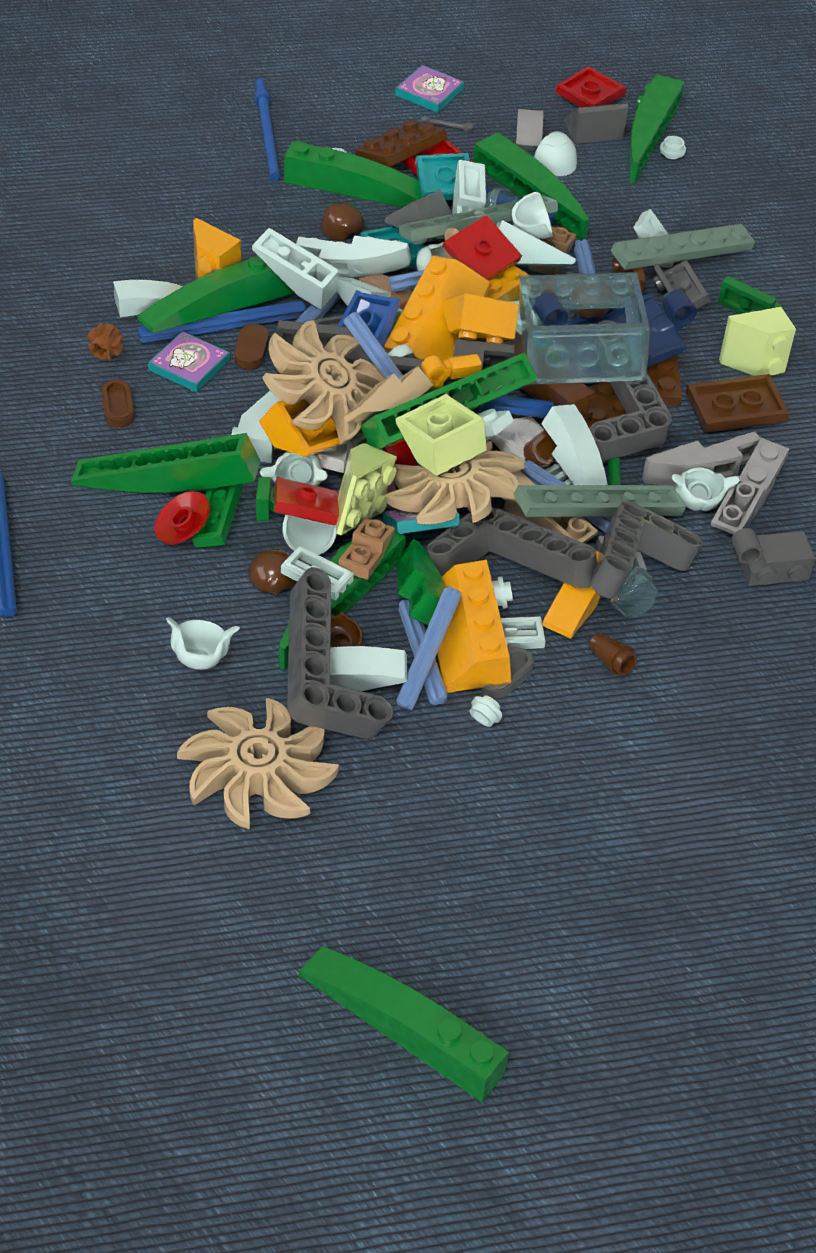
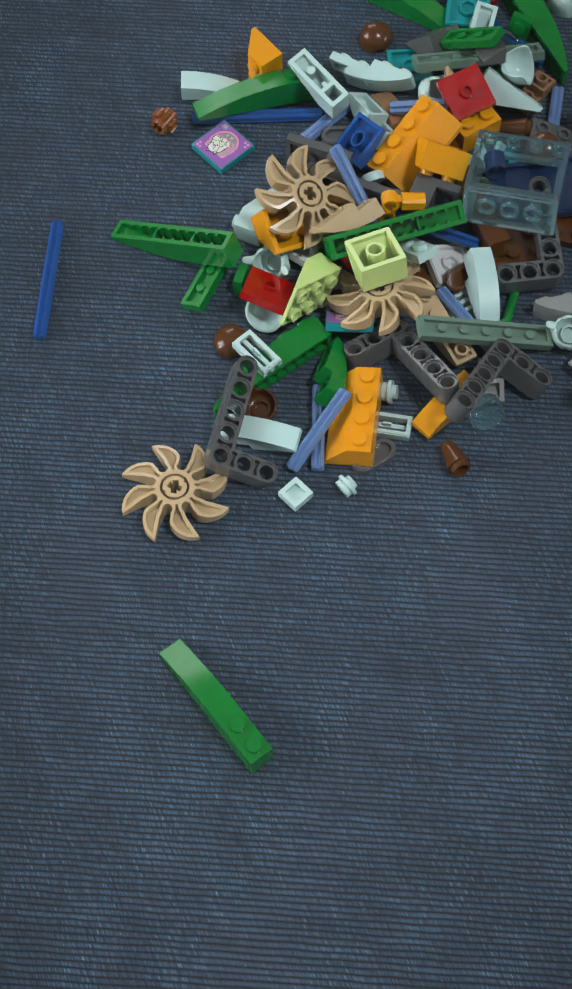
camera: 20 degrees right, 15 degrees up
(117, 403) = (160, 175): reddish brown tile -> none
(182, 518) = (177, 285): red dish -> none
(200, 642) = (160, 391): light aqua hair -> none
(251, 346) = (272, 141): reddish brown tile -> none
(367, 547) = (299, 339): medium nougat slope -> none
(421, 733) = (295, 494): none -> light aqua plate
(468, 195) = (472, 38): none -> green plate
(494, 202) = (493, 55): none -> dark grey slope
(516, 180) = (520, 25): none -> green plate

